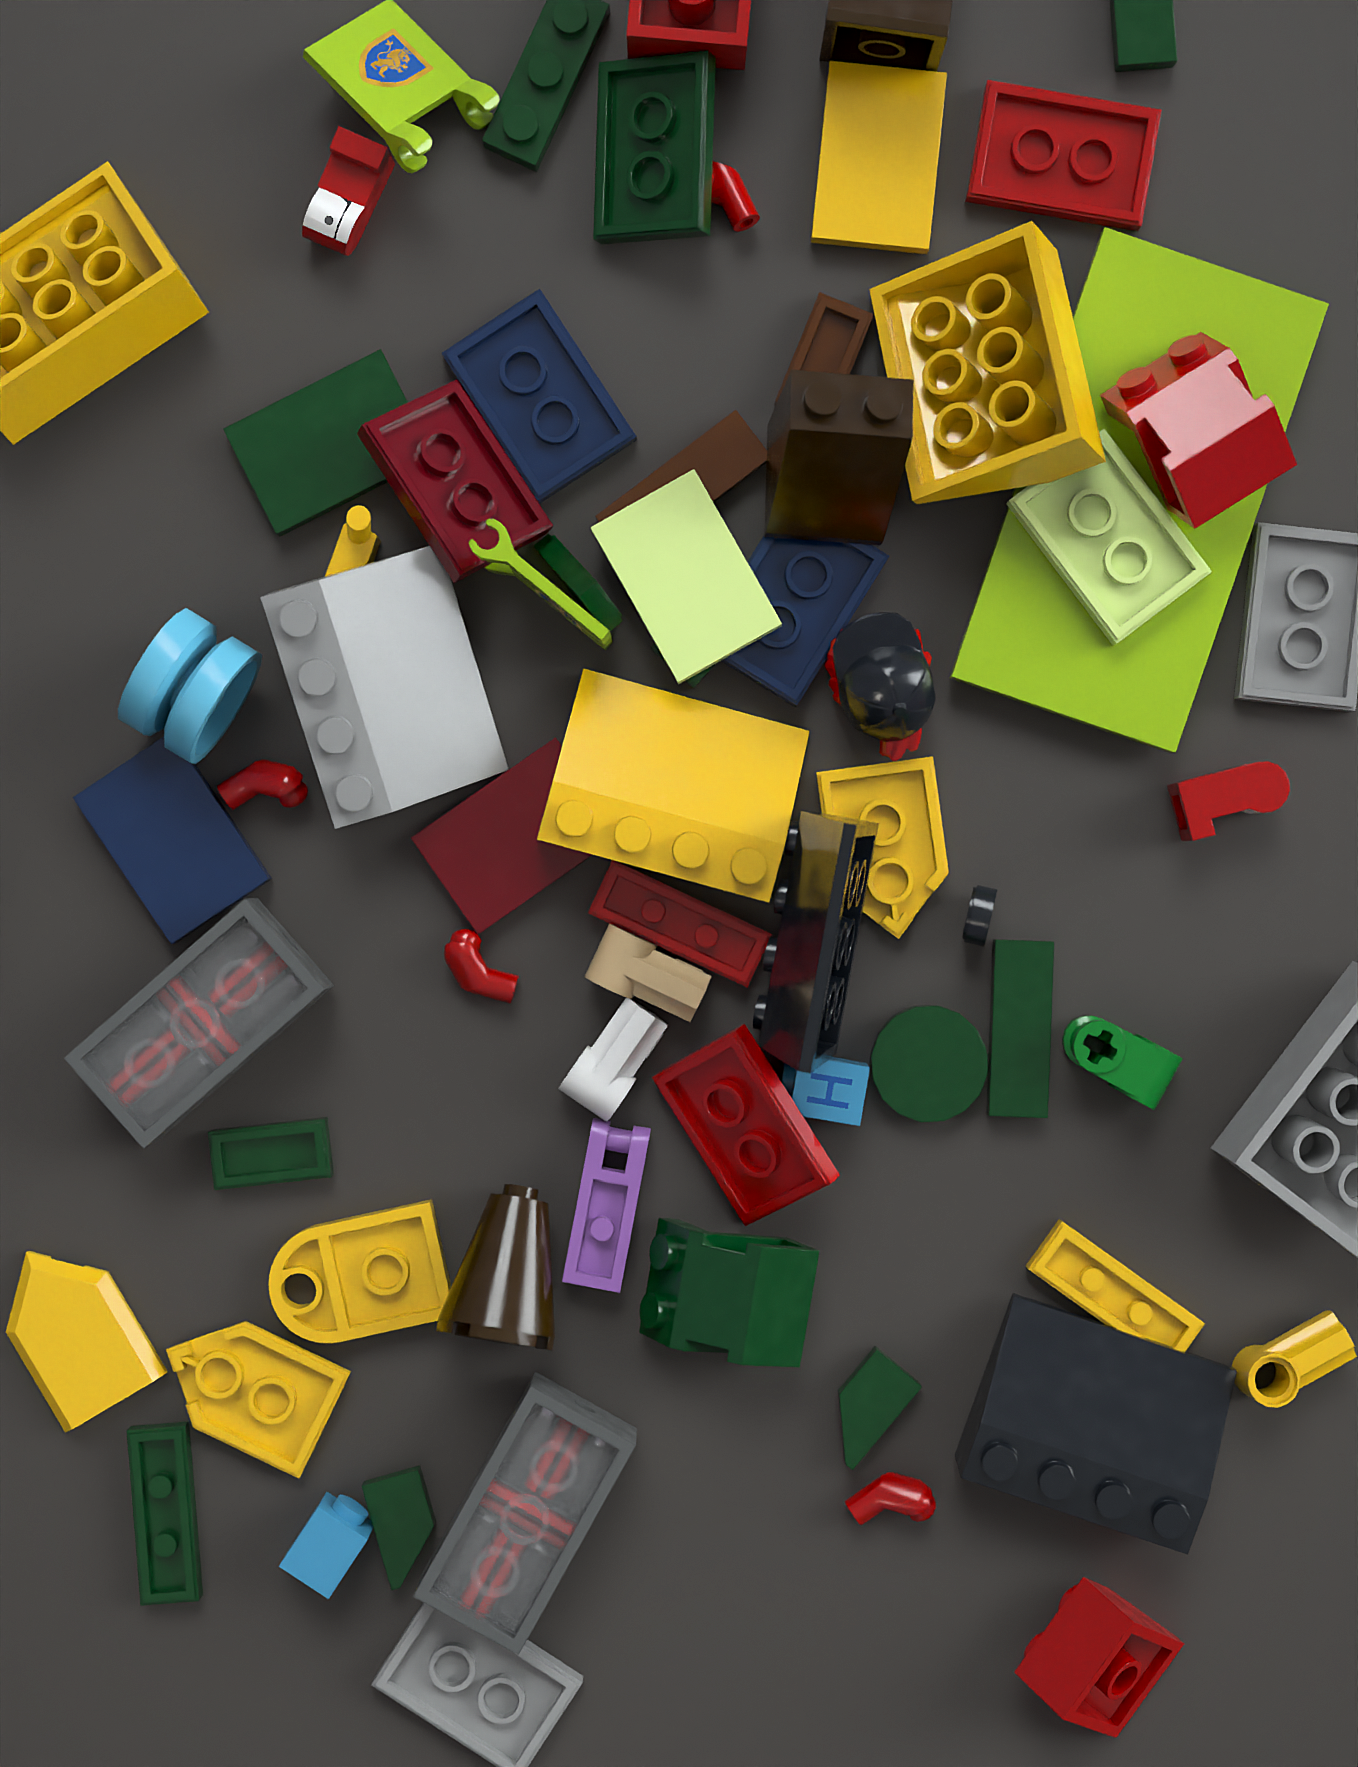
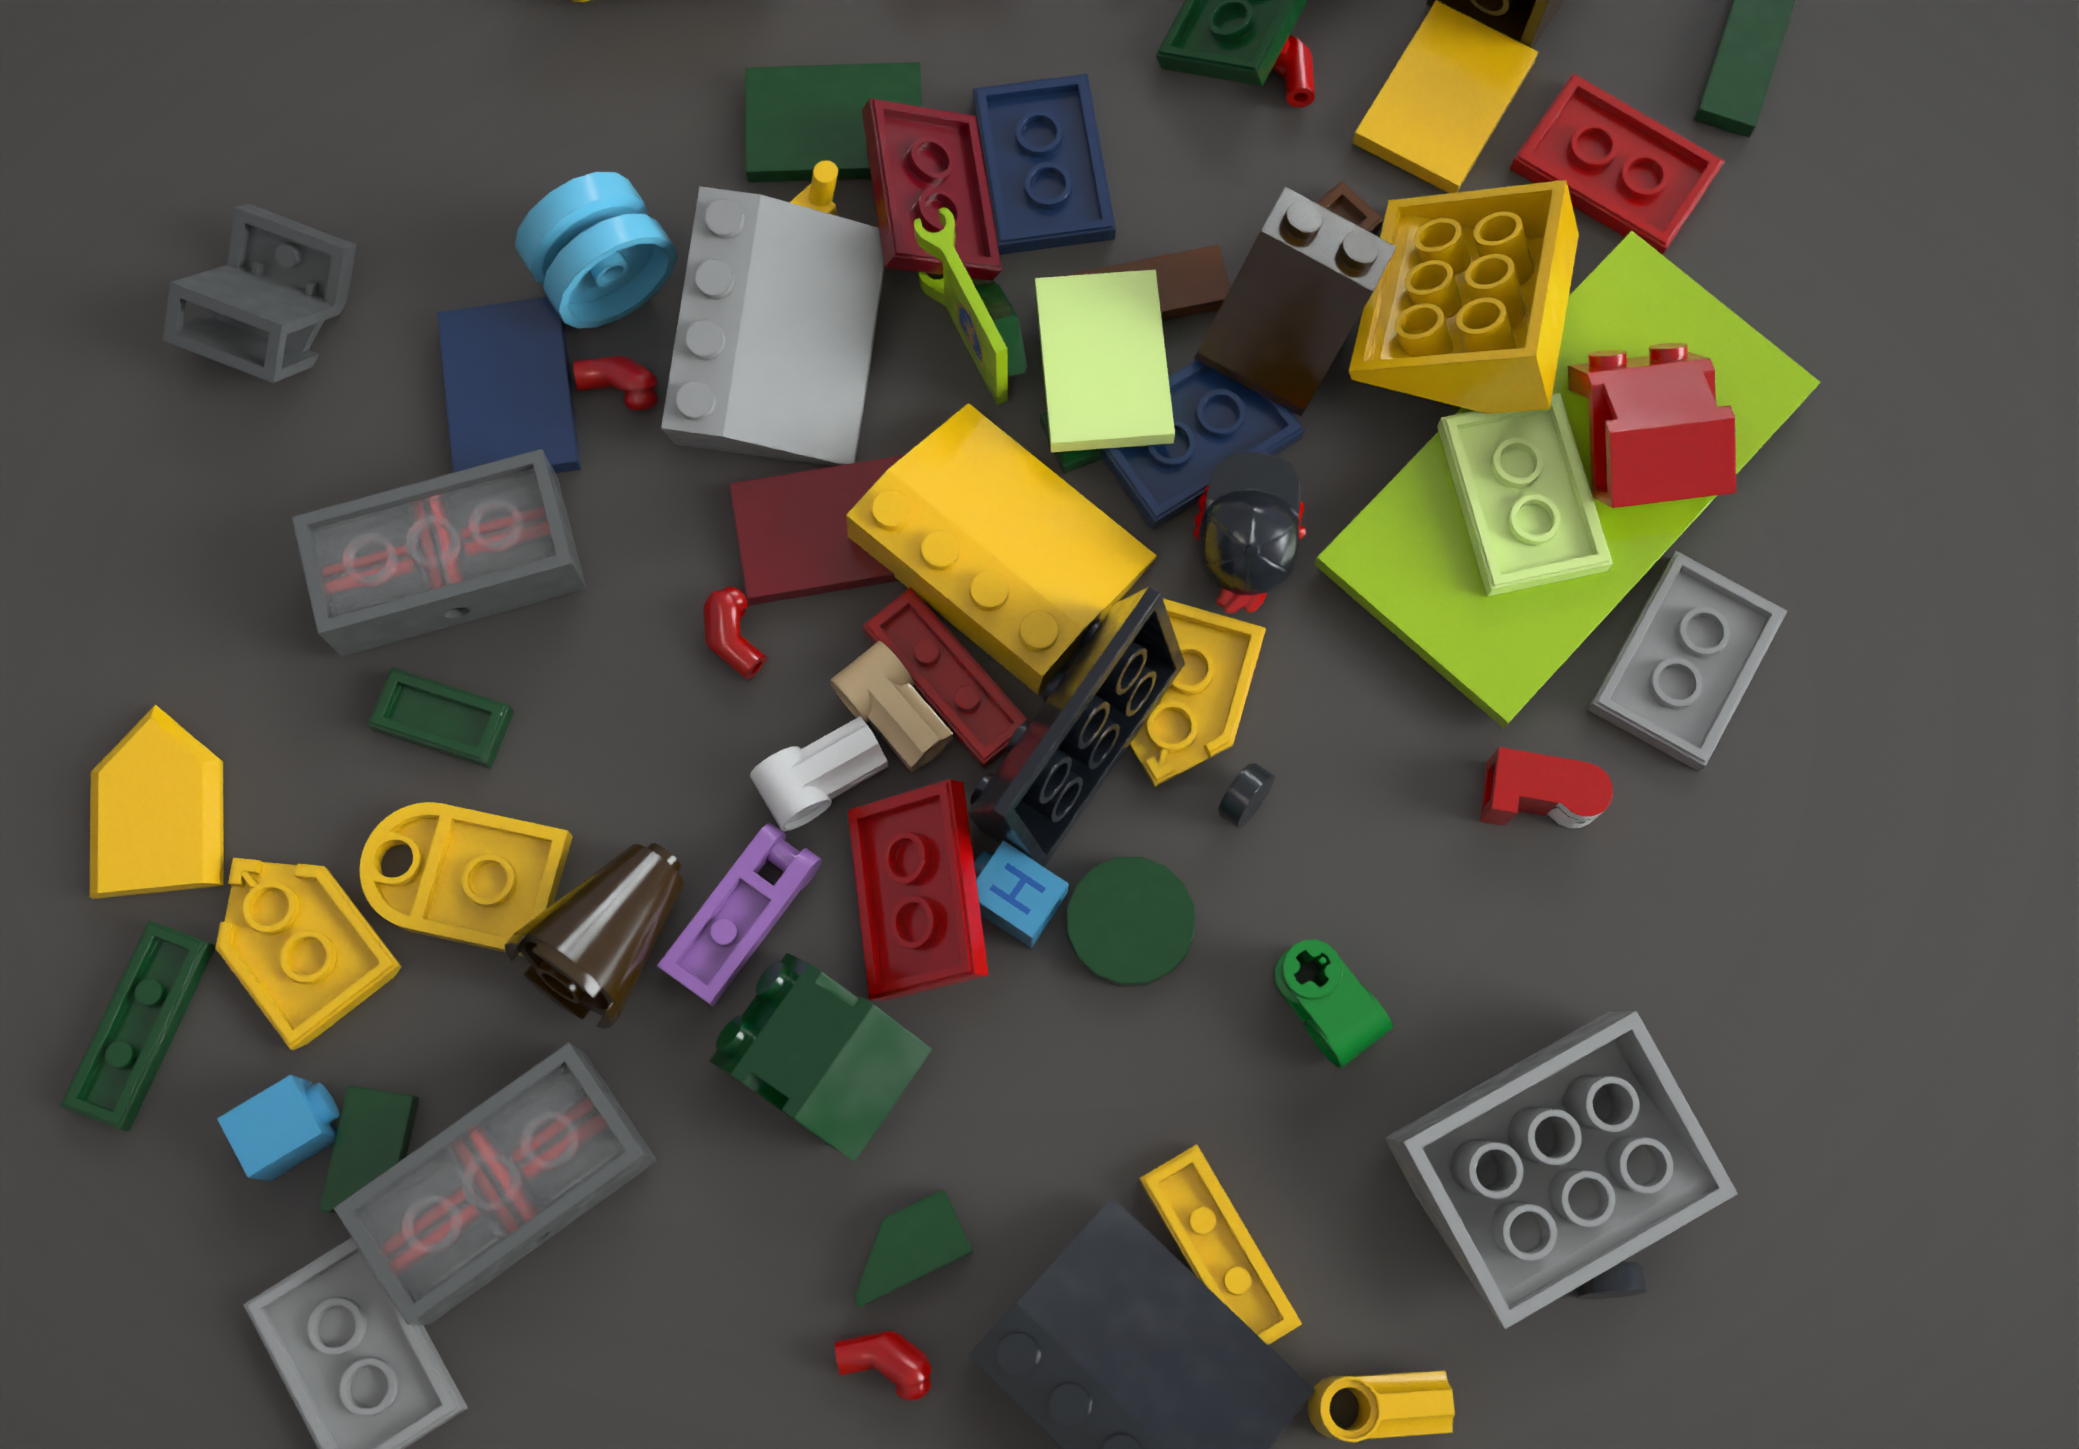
camera: 25 degrees right, 15 degrees down
(1020, 1028) = (1238, 929): dark green tile -> none

